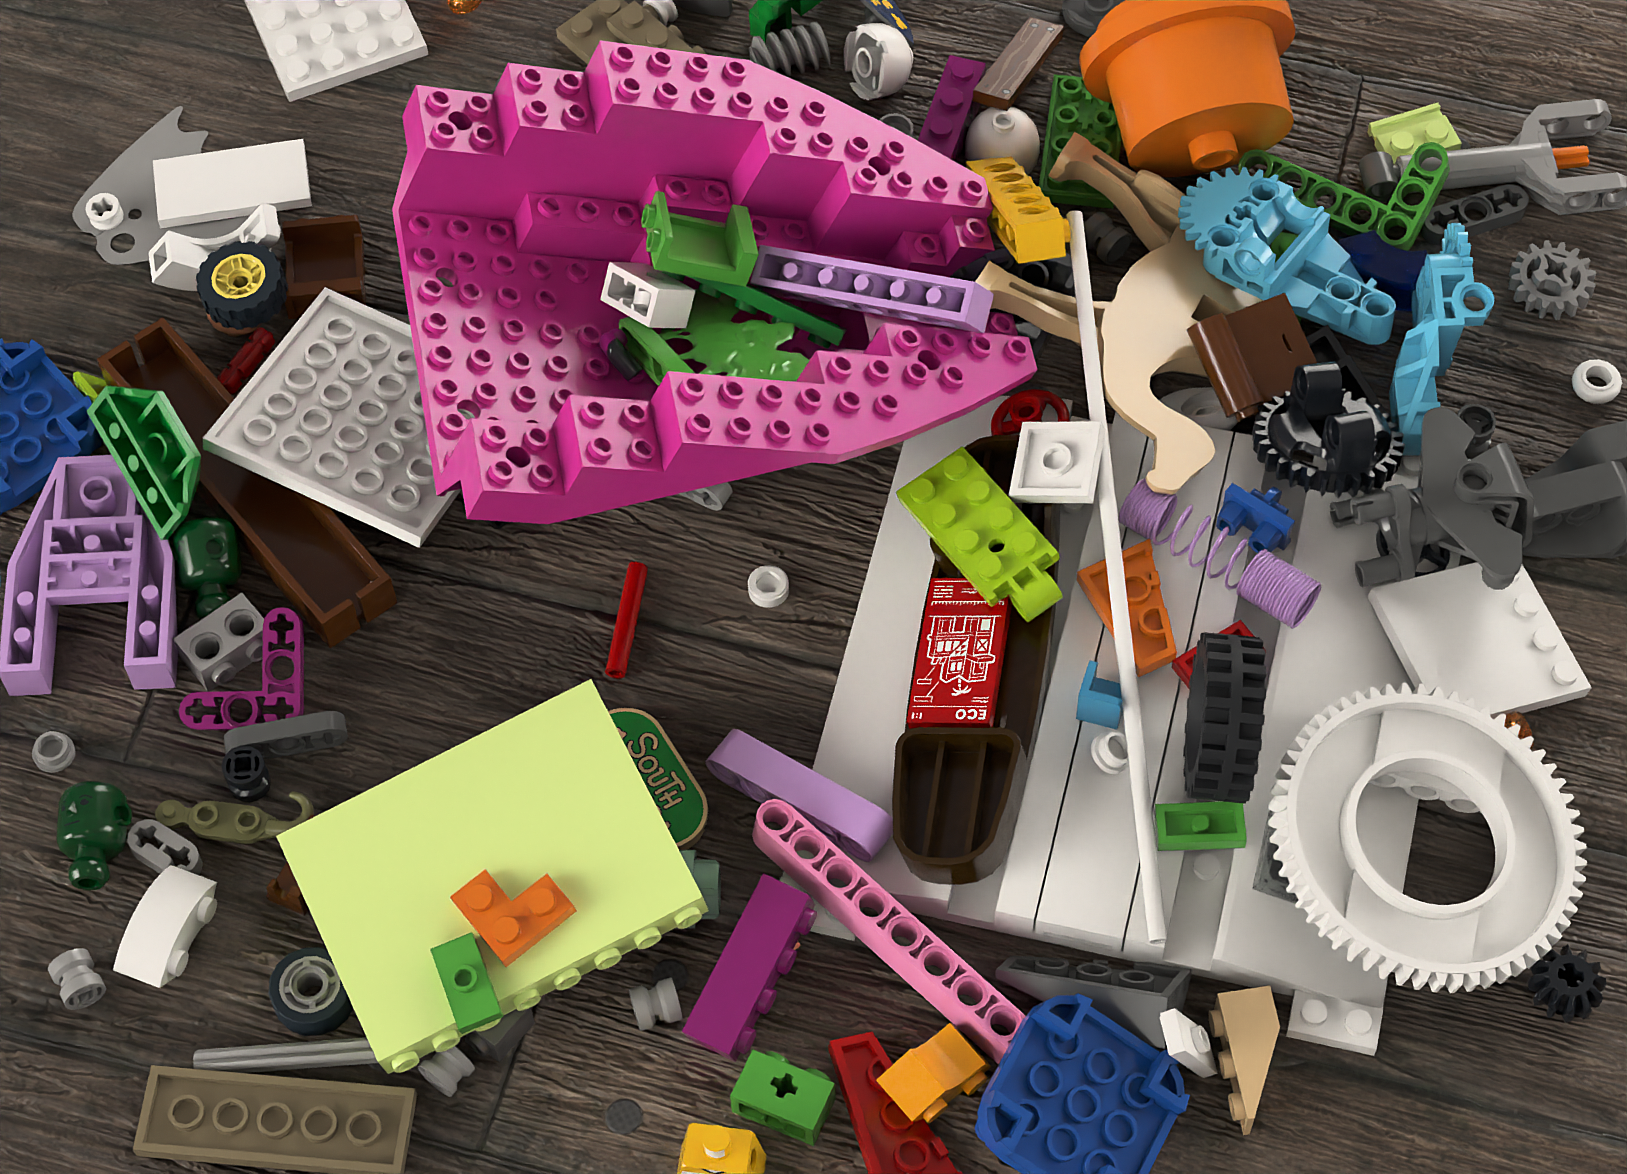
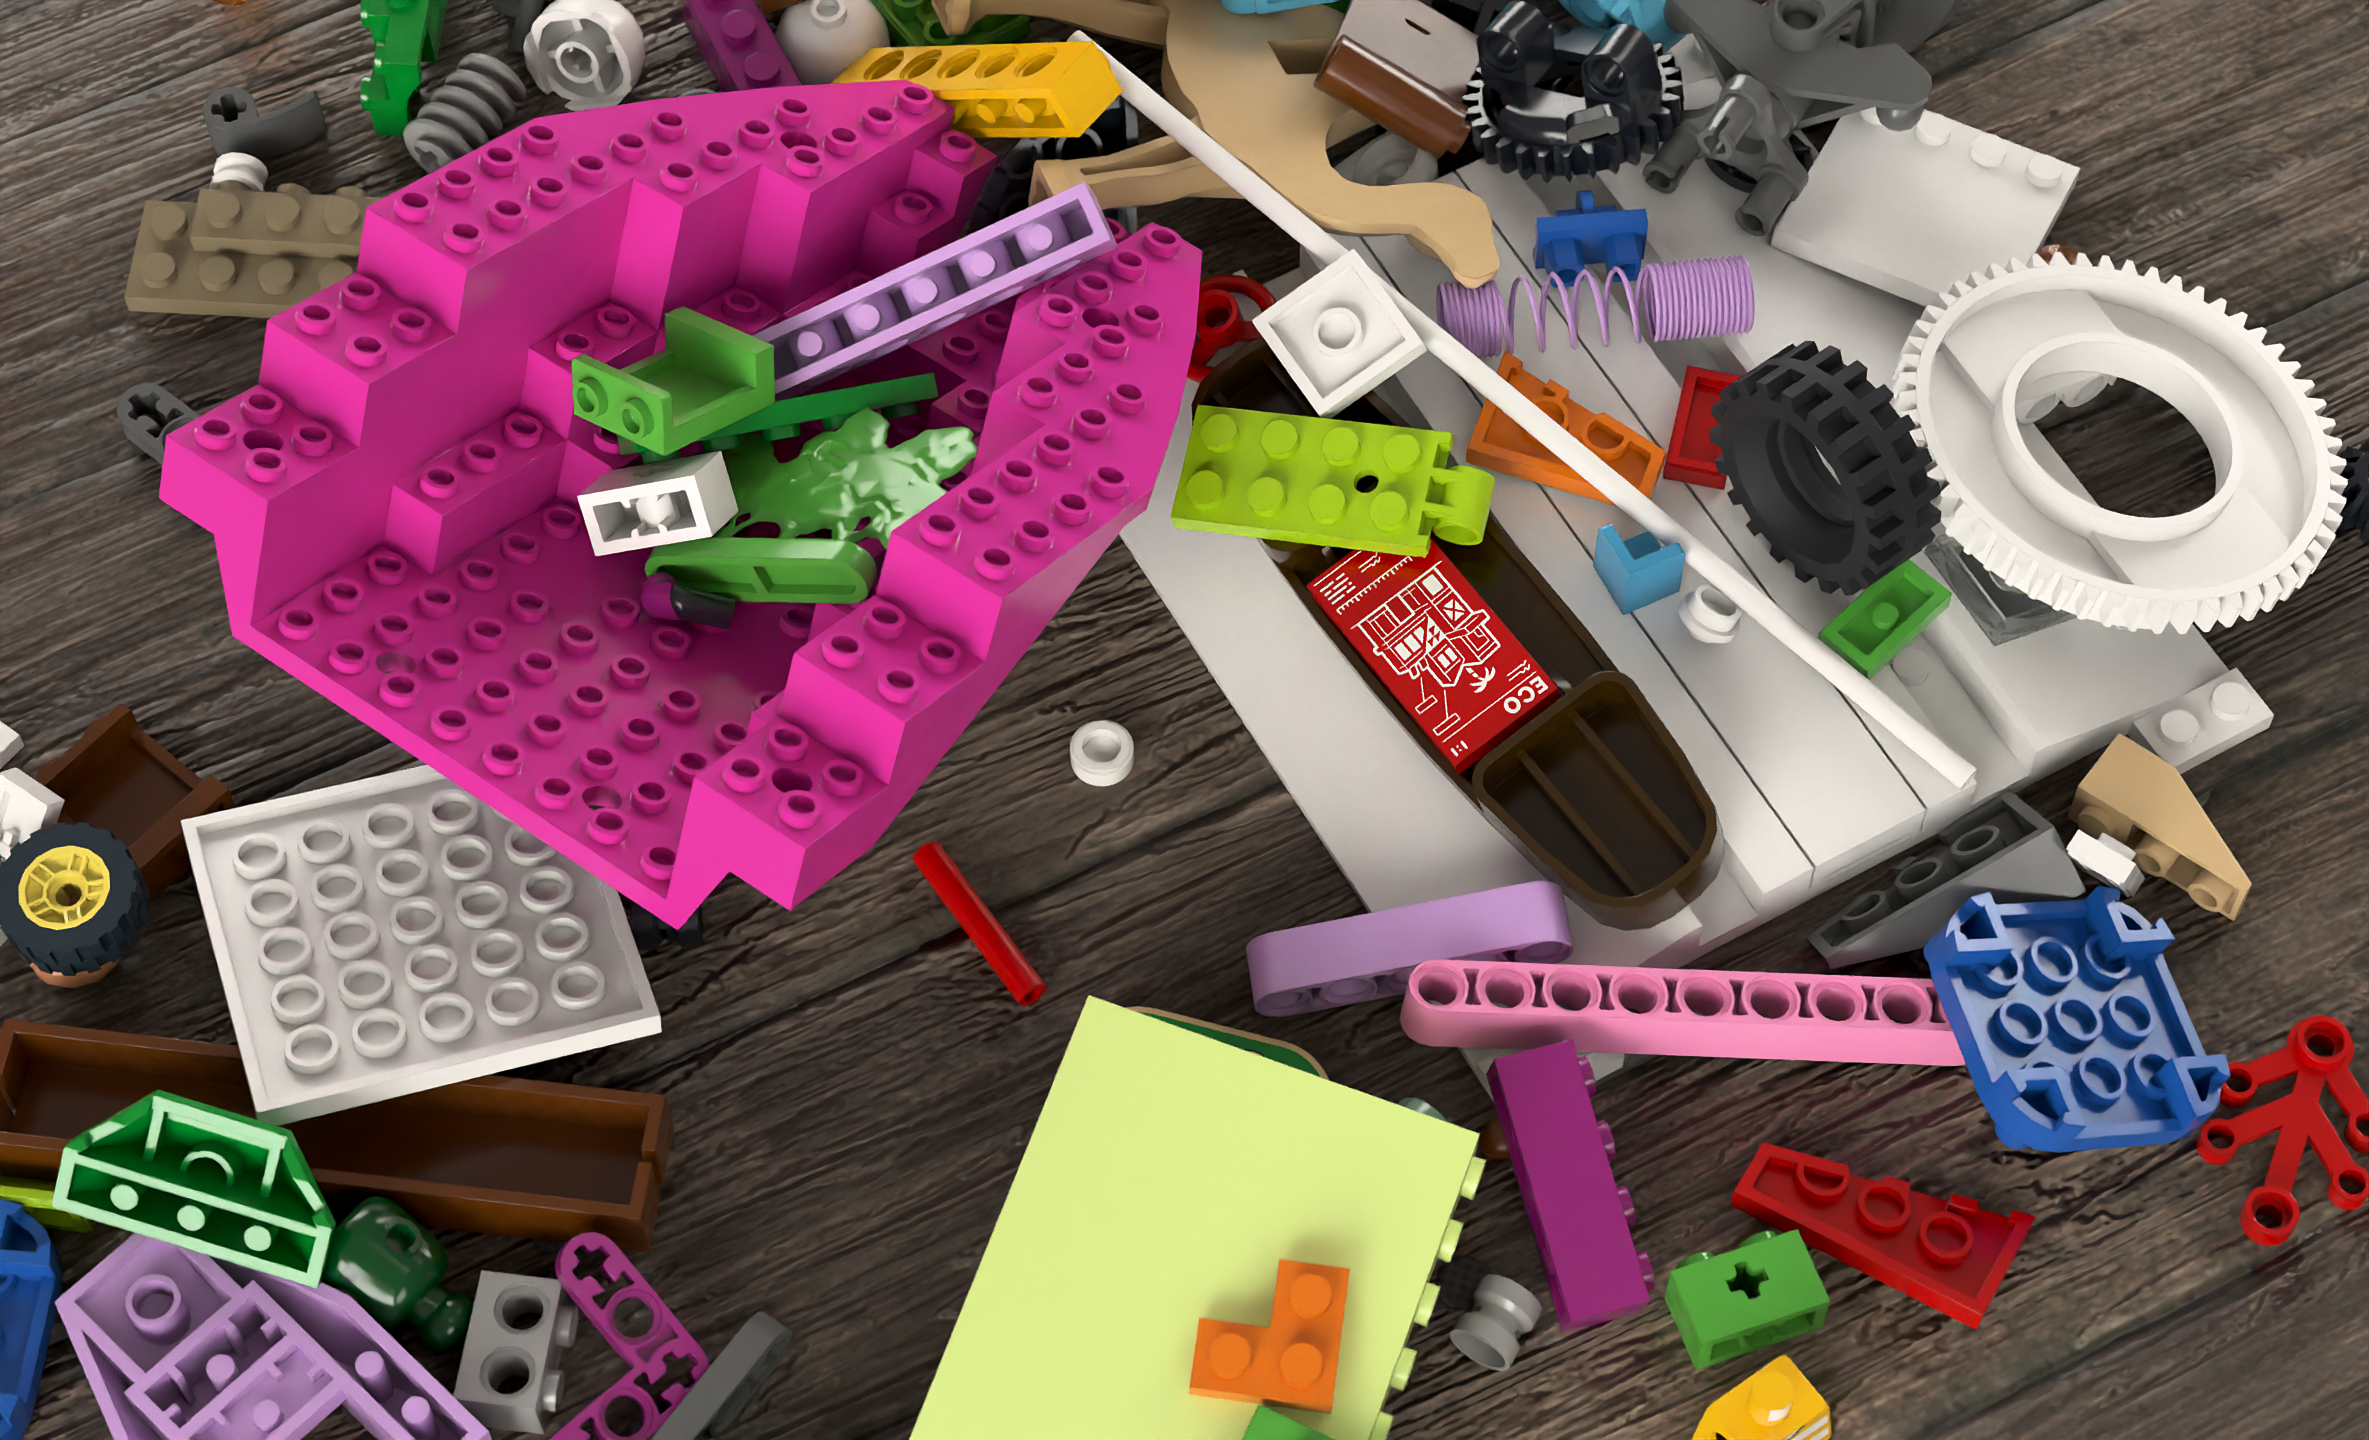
camera: 45 degrees left, 0 degrees up
(246, 359) = (149, 988): red axle -> none
(935, 1074) = (1886, 1124): light orange brick -> none

